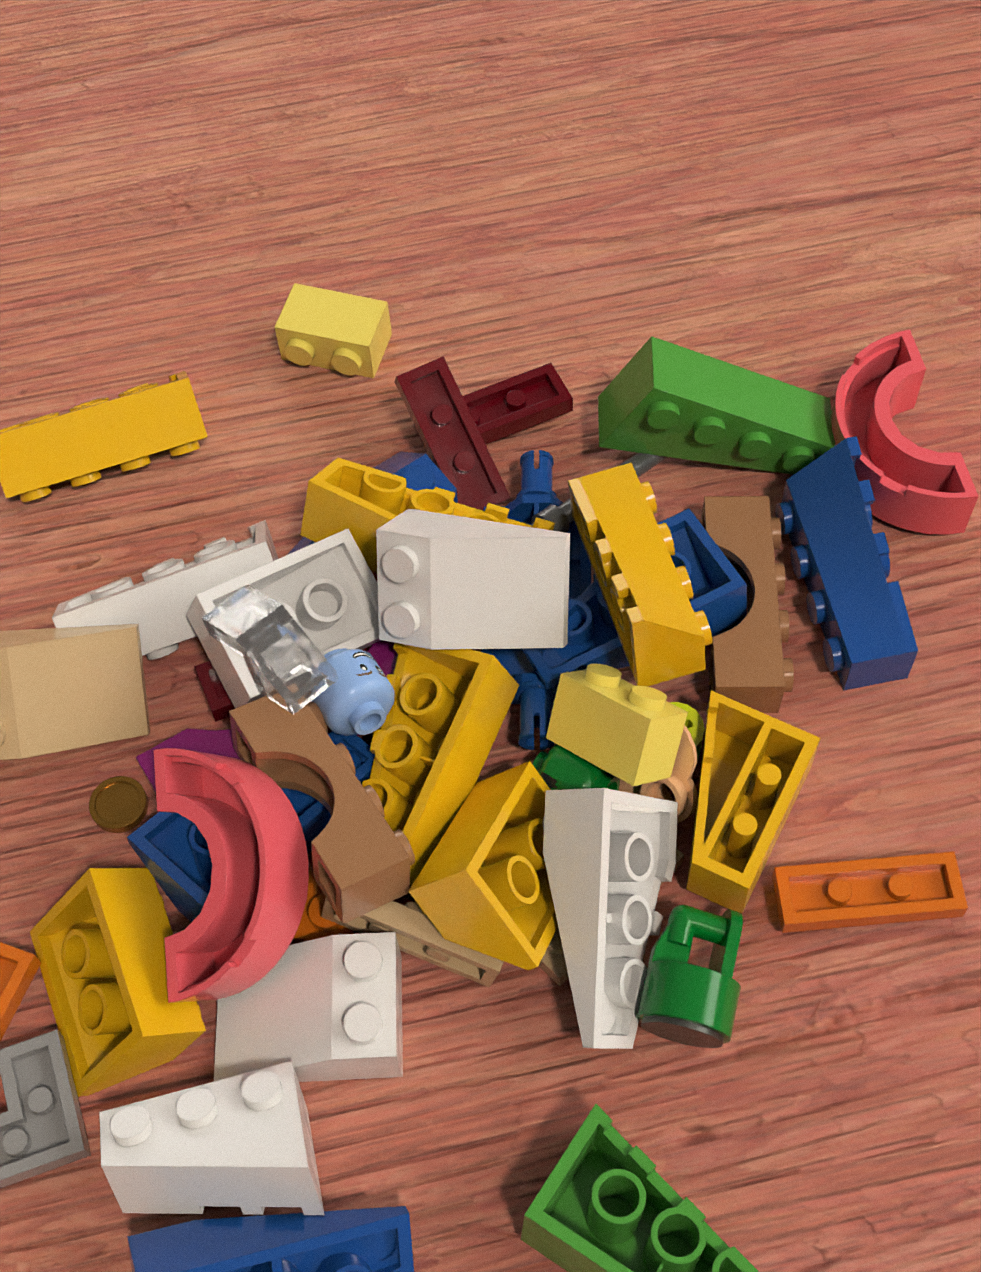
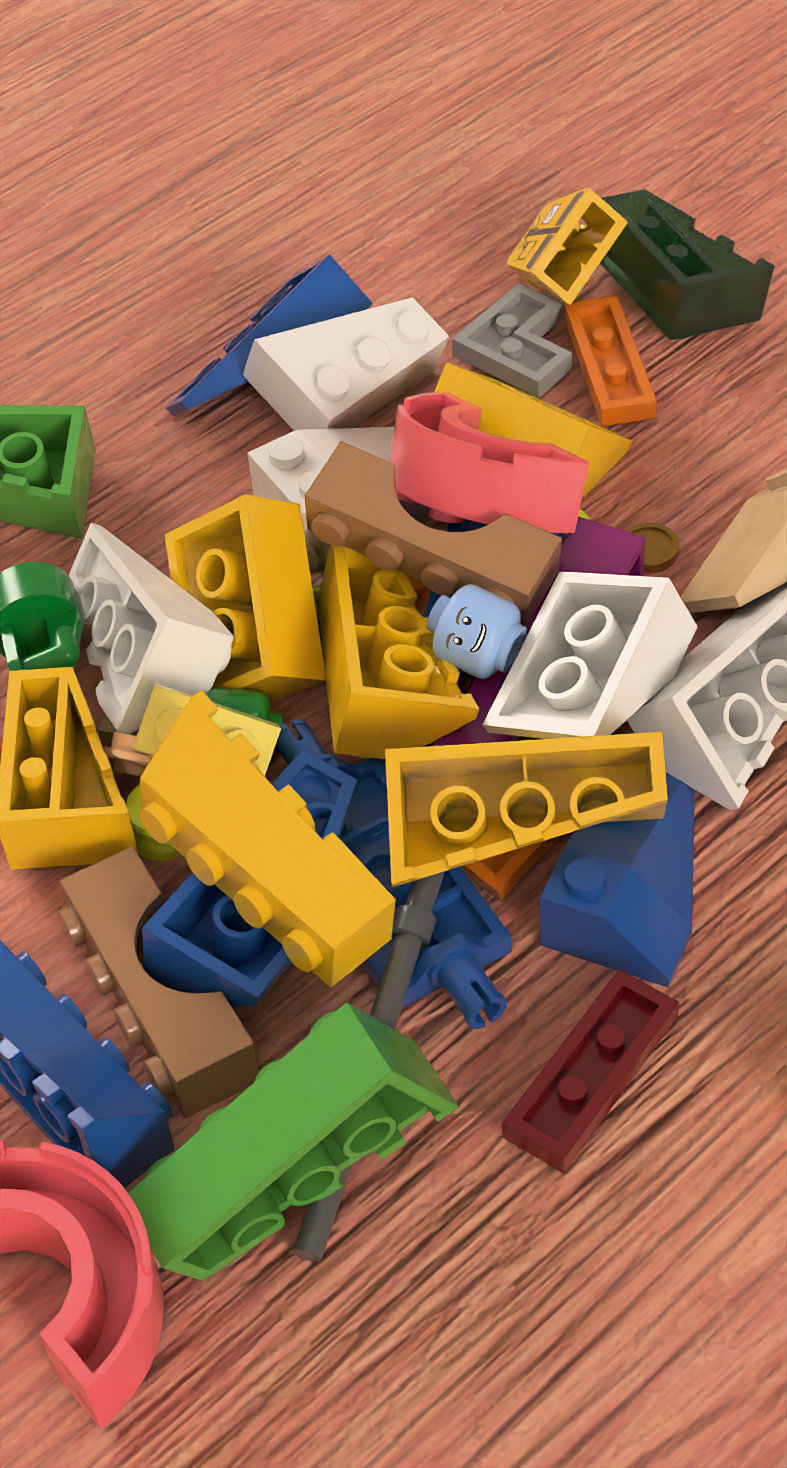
camera: 150 degrees right, 10 degrees down
(274, 646) = (568, 565): clear slope -> none
(451, 434) = (599, 968): dark red plate -> none
(471, 583) = (457, 702): white slope -> none

